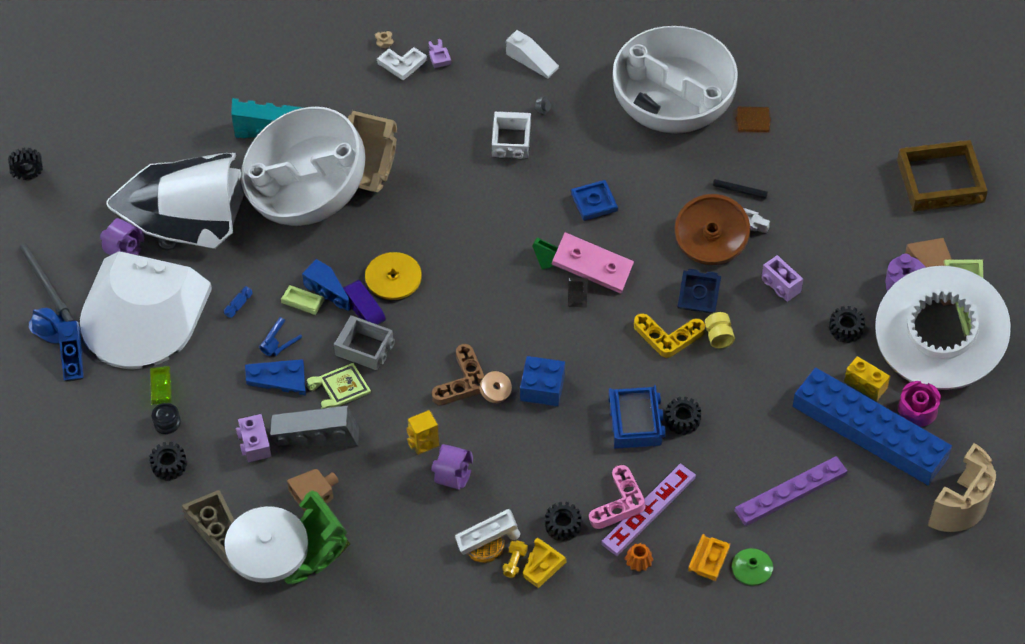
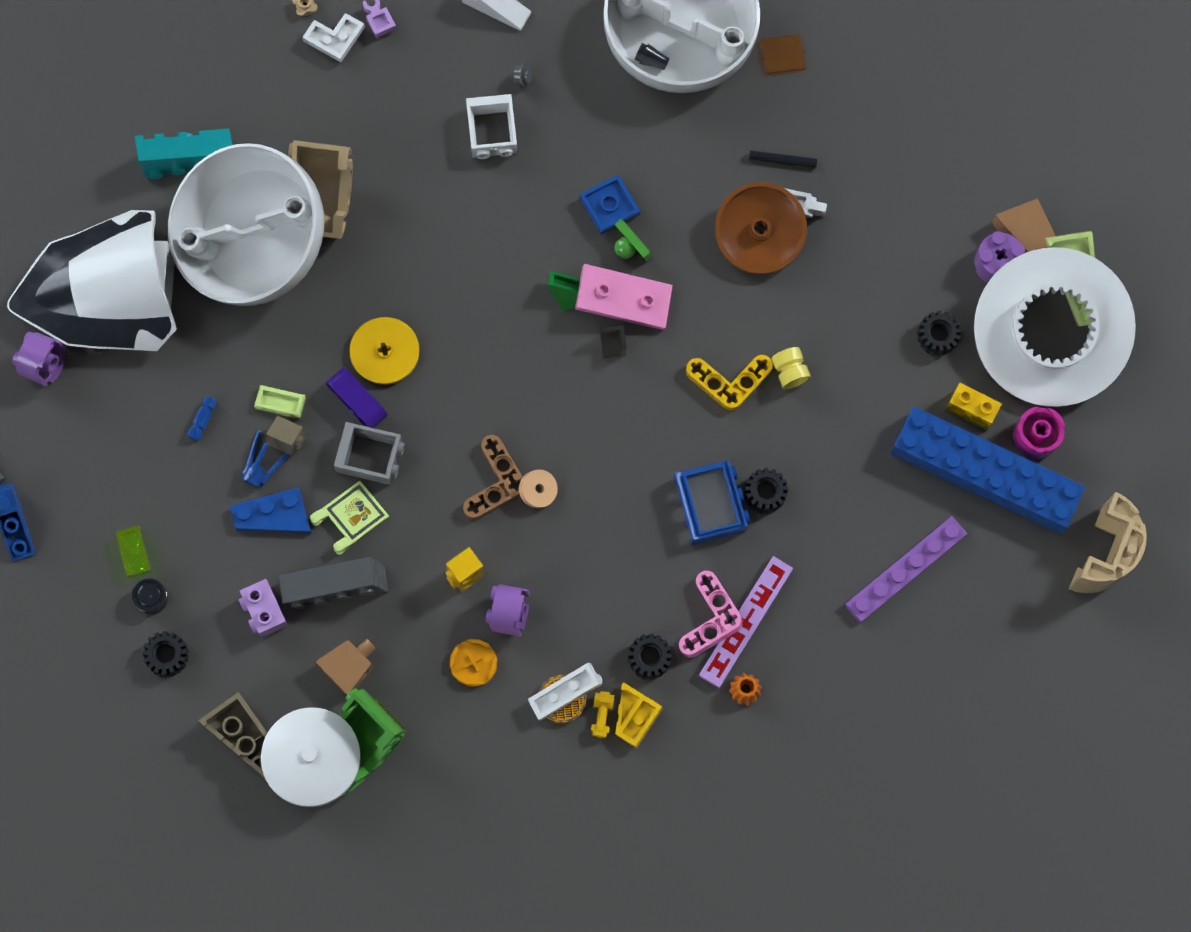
camera: 15 degrees left, 20 degrees up
(141, 310) = (85, 452): white windscreen -> none
(300, 321) = (285, 435): none -> dark tan brick
(324, 282) = (300, 373): blue slope -> none
(416, 506) = (473, 663): none -> light orange tile
(542, 381) = (592, 472): blue brick -> none
(605, 228) = (630, 243): none -> bright green tile
(699, 291) = (758, 317): dark blue plate -> none
(709, 557) = (826, 675): light orange plate -> none
(752, 574) = (874, 687): bright green dish -> none
(782, 278) = (854, 284): lavender brick -> none
(945, 198) = (1032, 137): pearl gold window -> none

